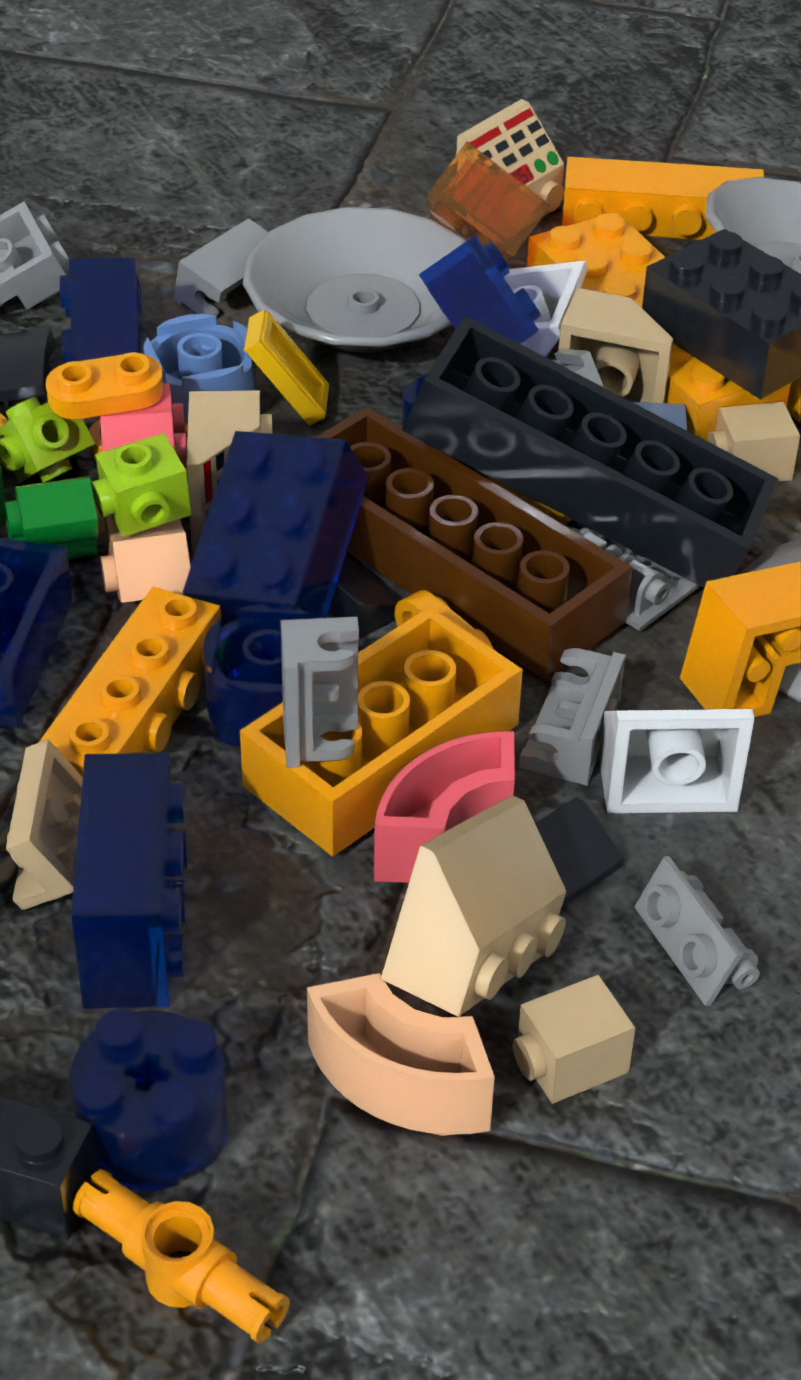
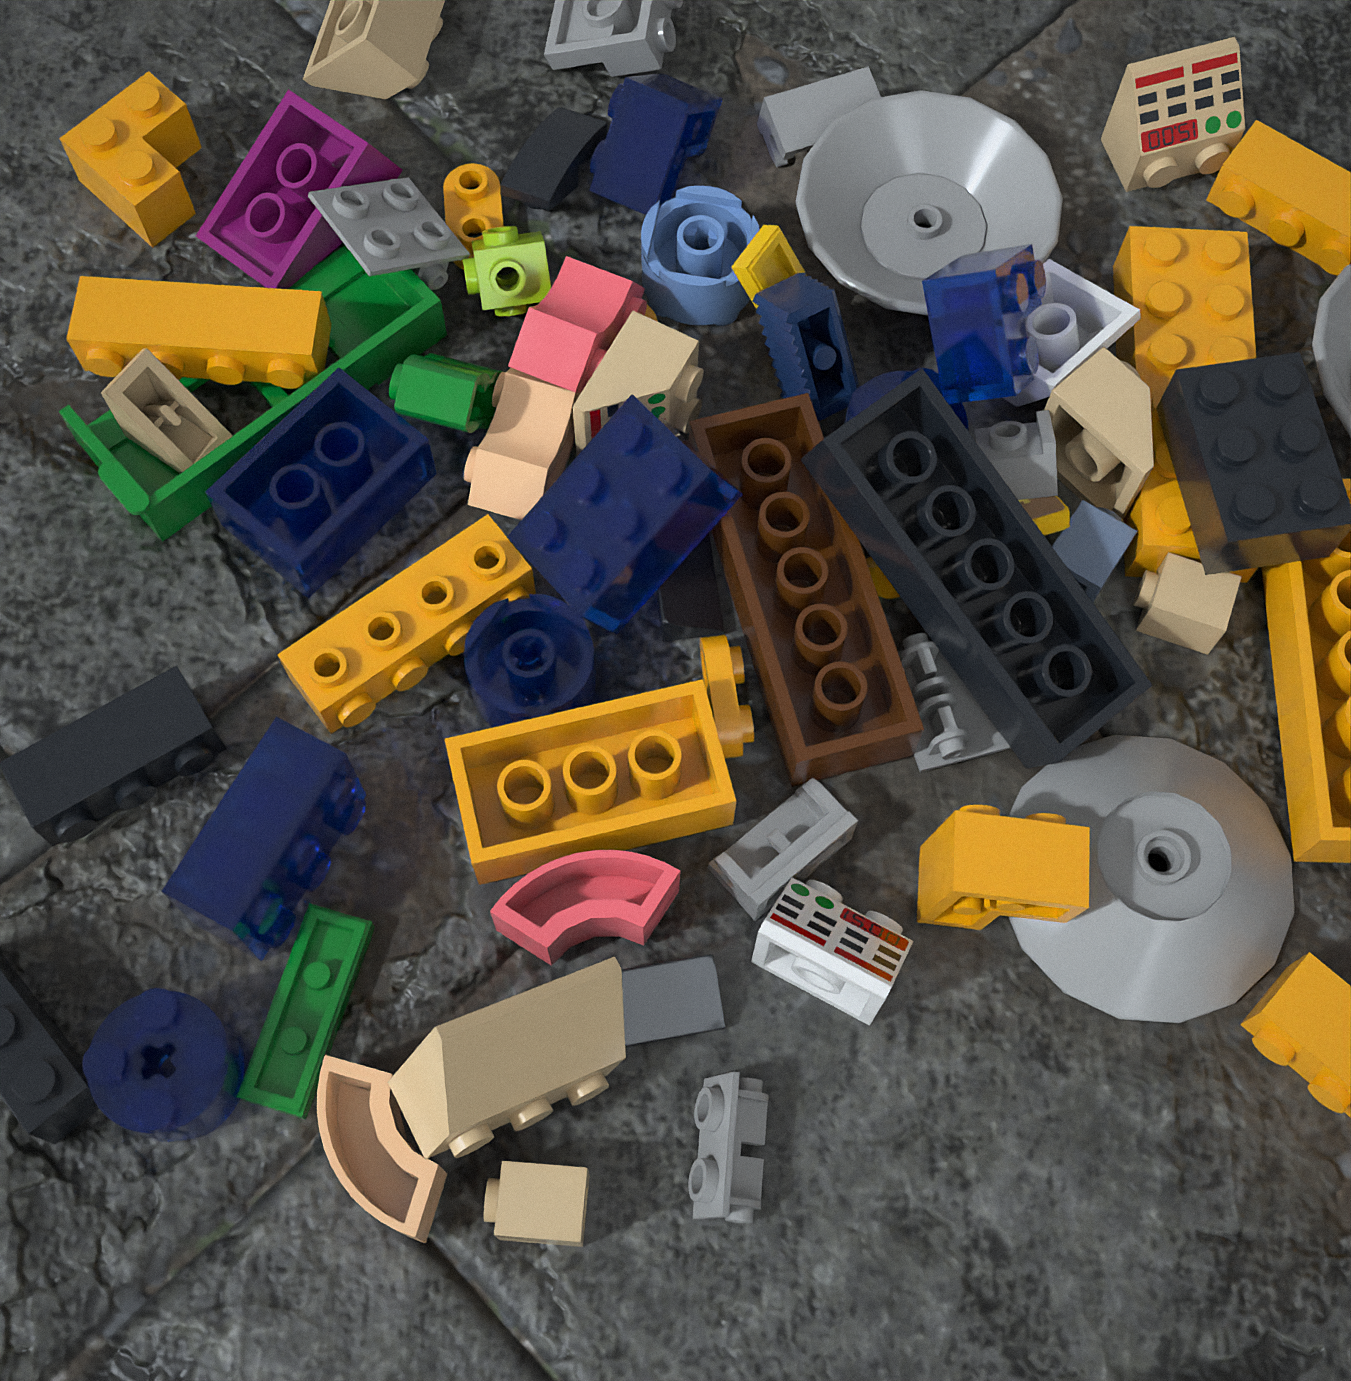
camera: 30 degrees right, 25 degrees up
(45, 826) = (239, 728): tan bracket -> none
(104, 386) = (560, 263): light orange plate -> none
(141, 485) = (522, 407): lime brick -> none
(202, 1278) = (119, 1261): light orange pin -> none
(246, 1017) = (306, 1011): none -> green tile
(319, 687) = (493, 752): light grey hinge -> none
(335, 376) = (808, 343): none -> dark blue brick
(485, 201) = (1099, 172): clear orange brick -> none

